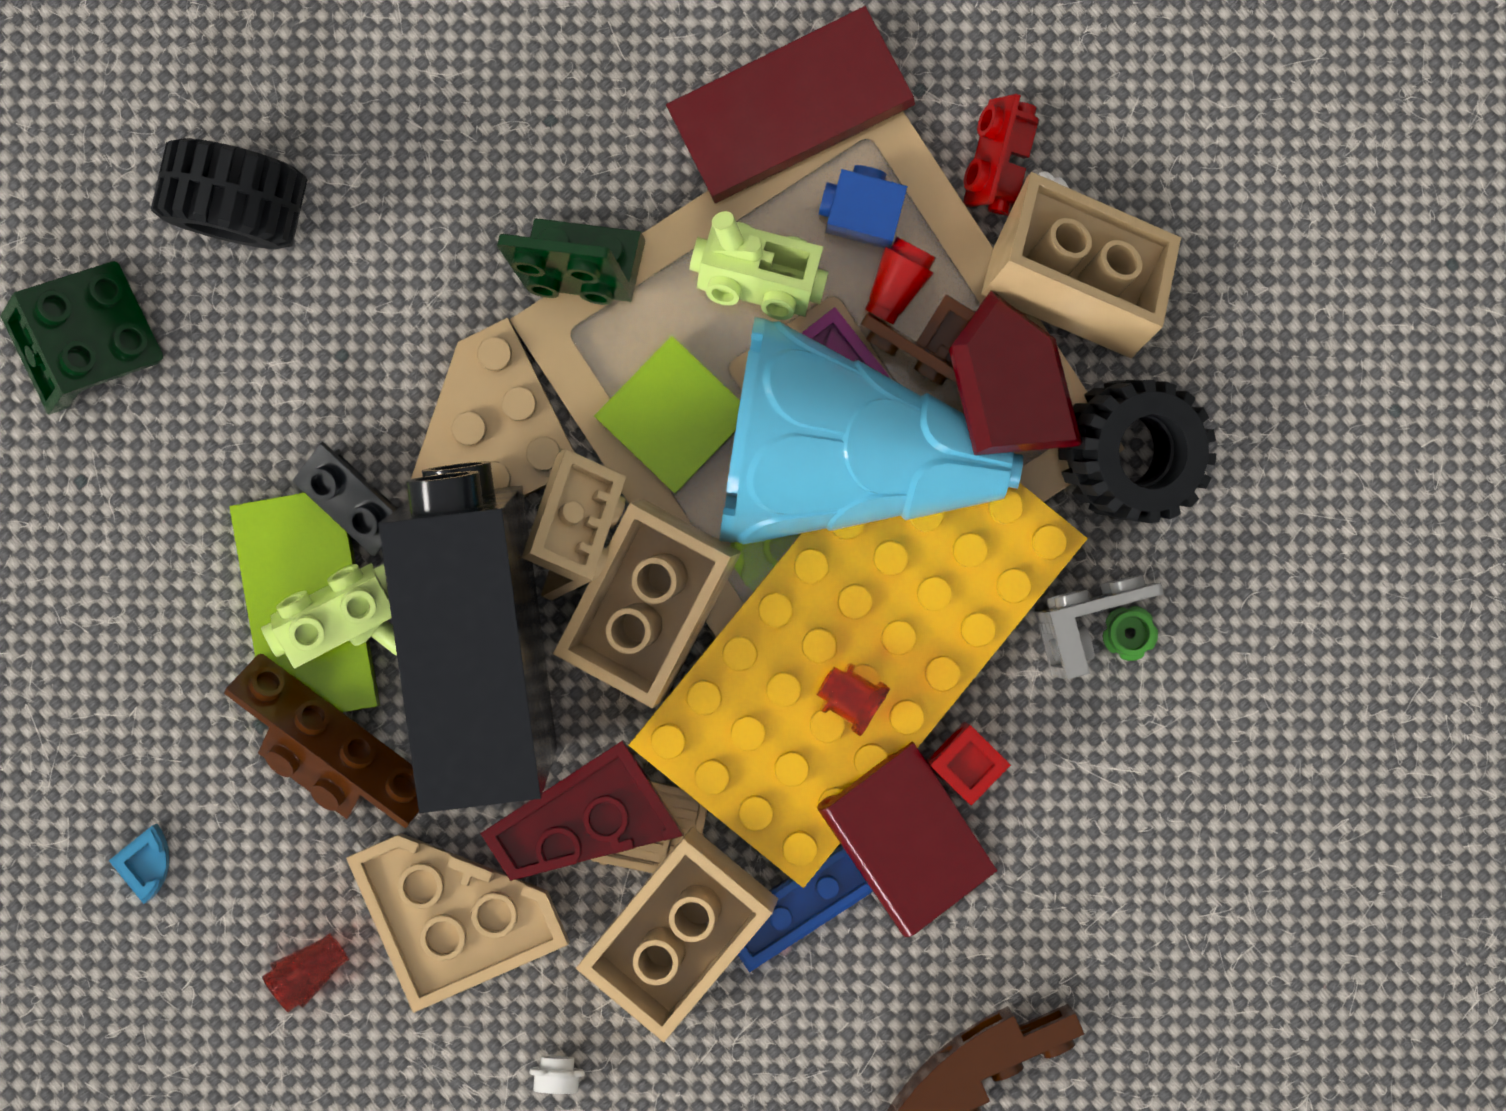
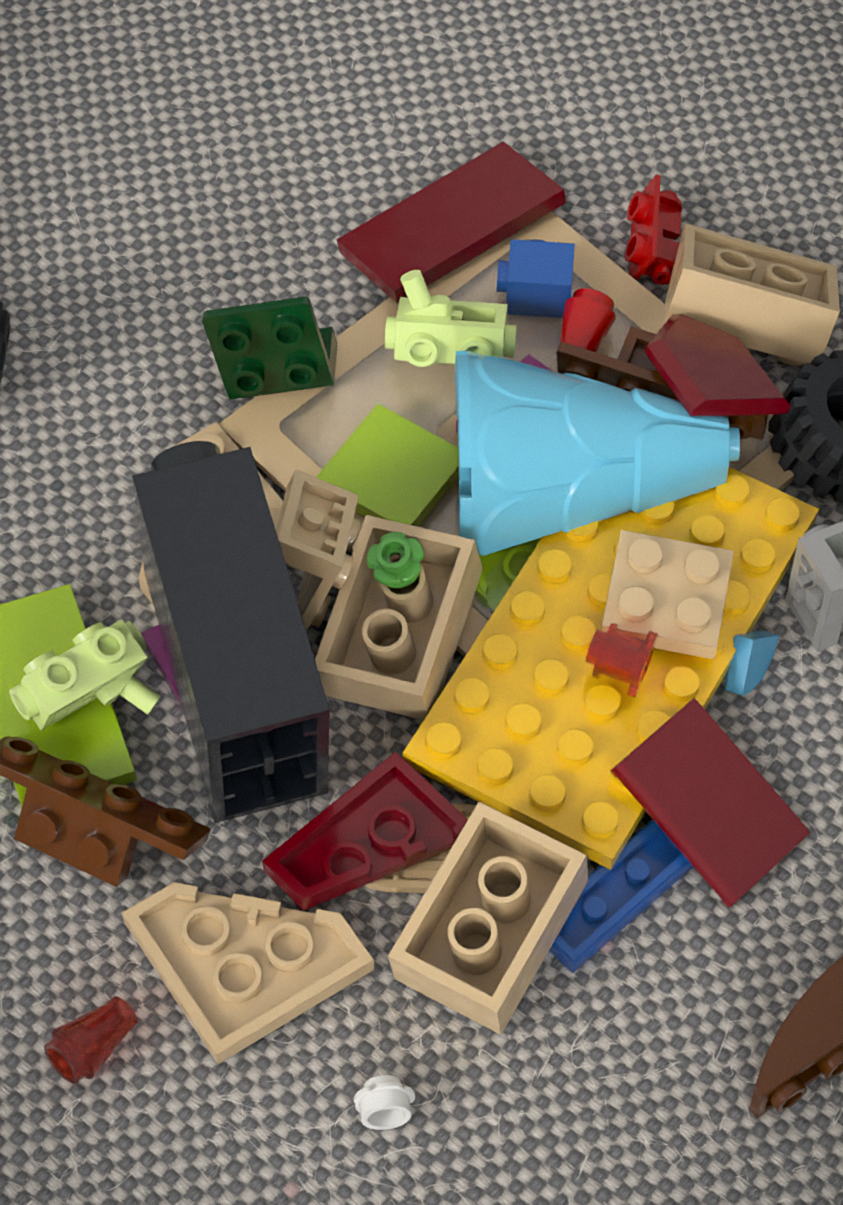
camera: 10 degrees left, 30 degrees down
(345, 496) = (83, 584): black hinge -> none
(663, 566) = (399, 573): none -> bright green plate
(913, 625) = (669, 590): none -> tan plate
(968, 763) = (756, 714): red brick -> none
(983, 685) = (750, 660): none -> dark azure tile

